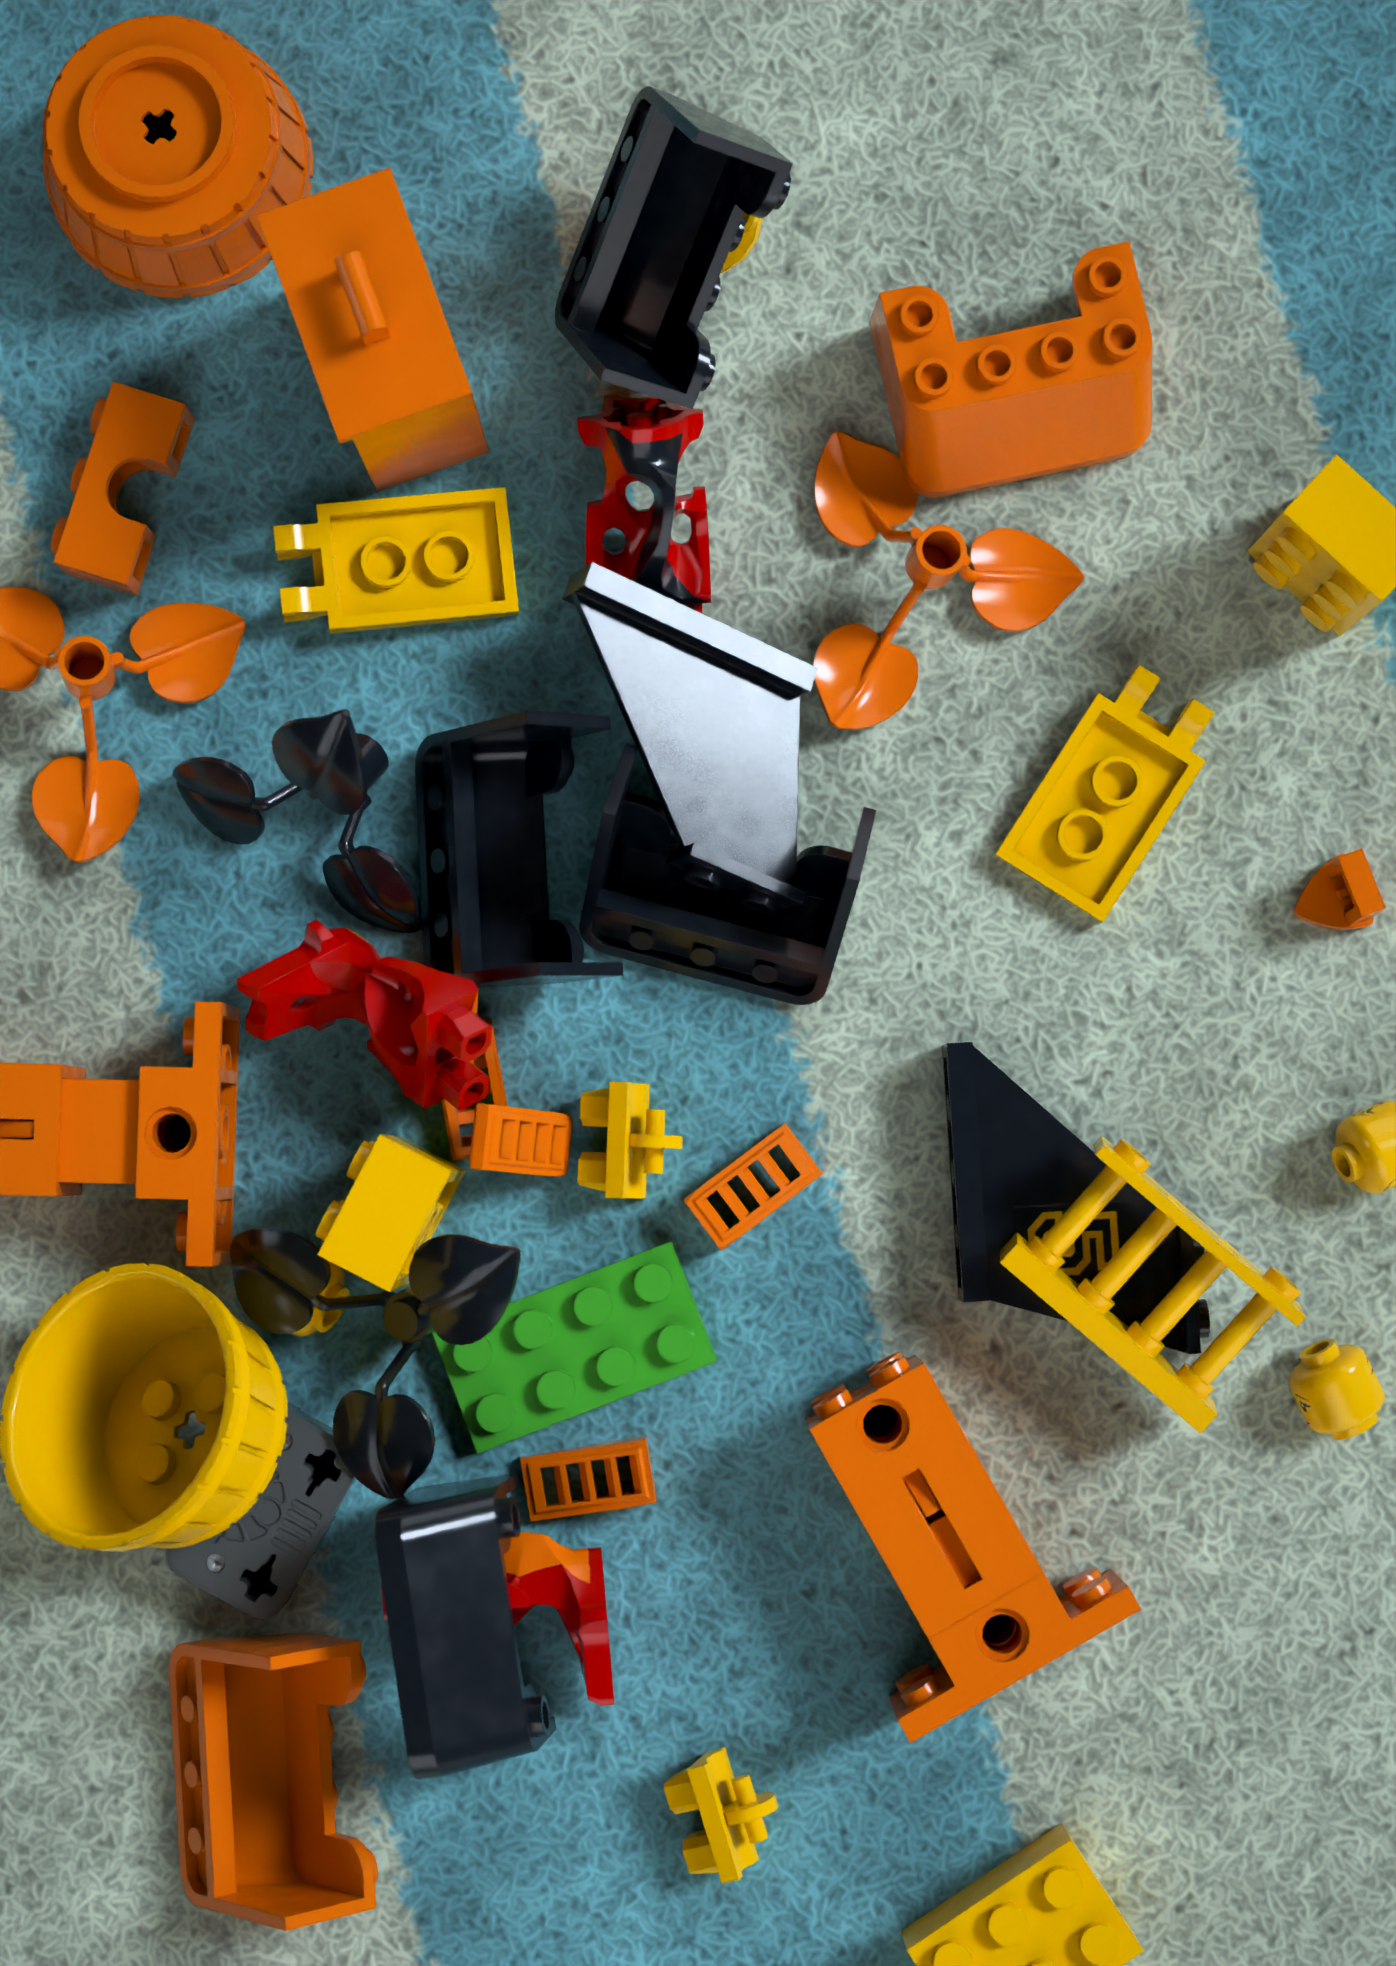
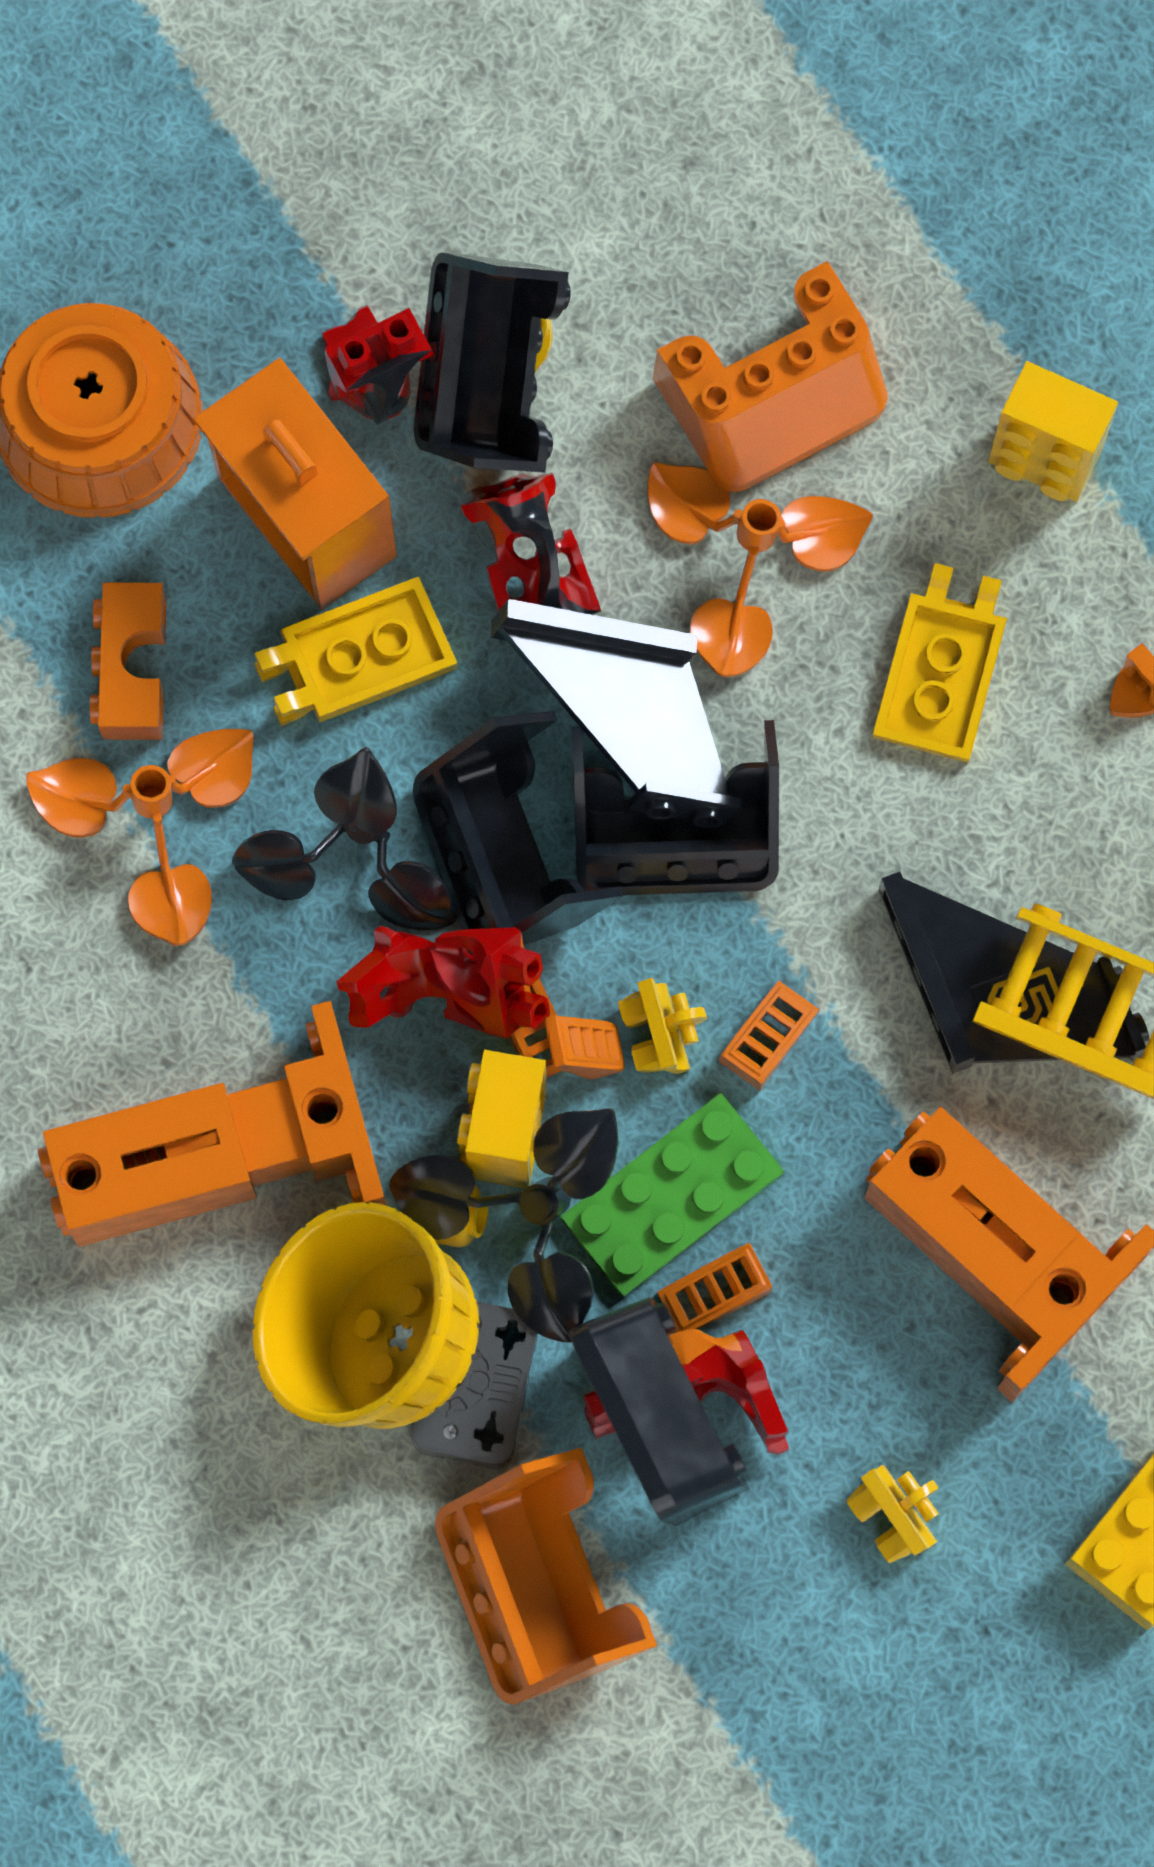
camera: 15 degrees left, 10 degrees down
(526, 200) = (373, 362): none -> red hips

